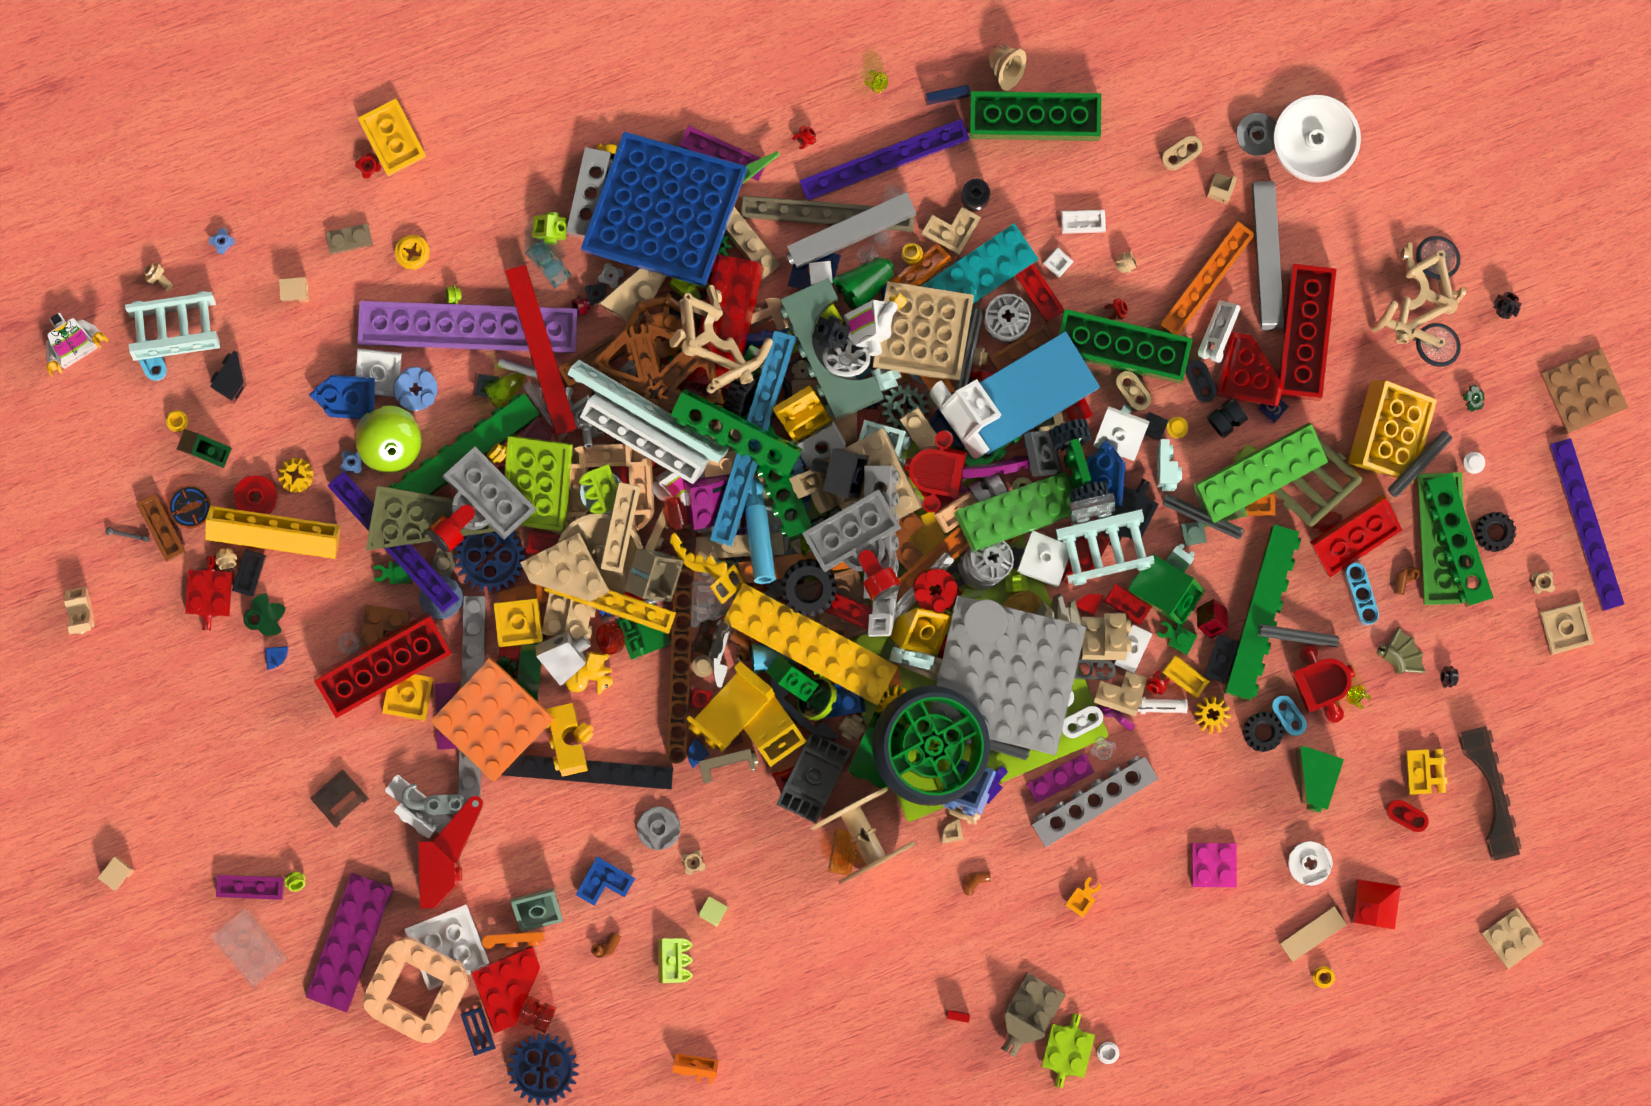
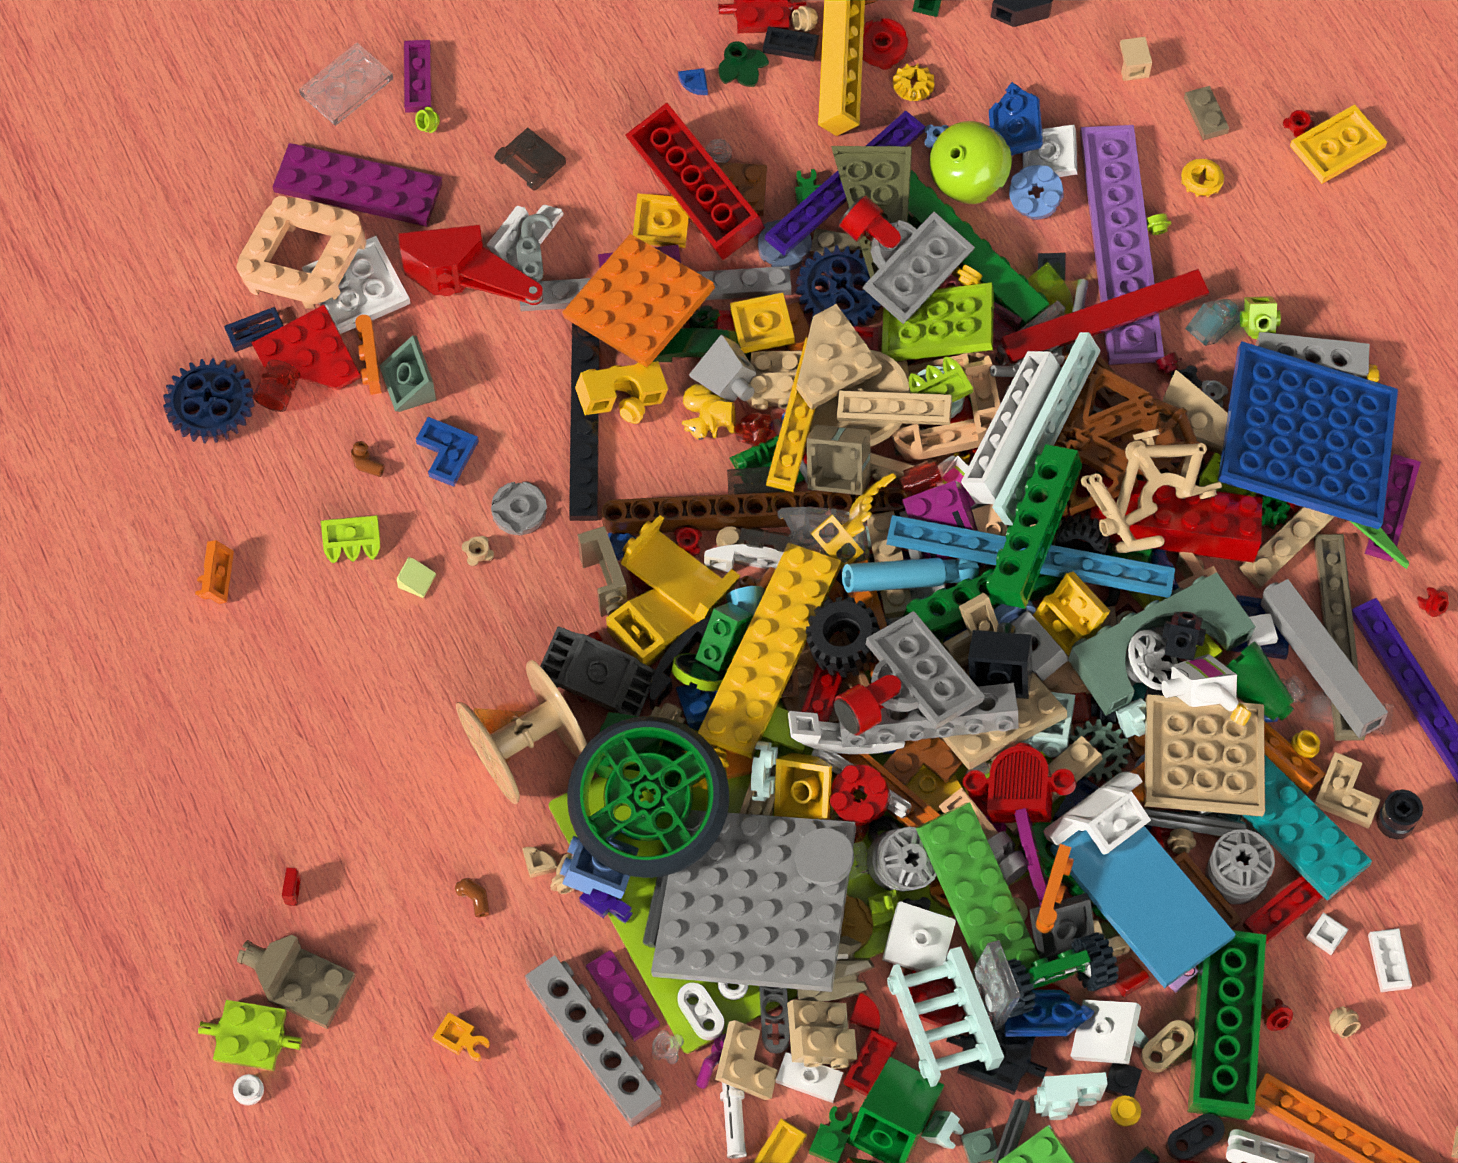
camera: 85 degrees right, 20 degrees down
(658, 646) = (749, 481): none -> clear smoke slope
(1024, 457) = (1054, 891): none -> orange plate
(1156, 685) = (761, 1110): red plate -> none

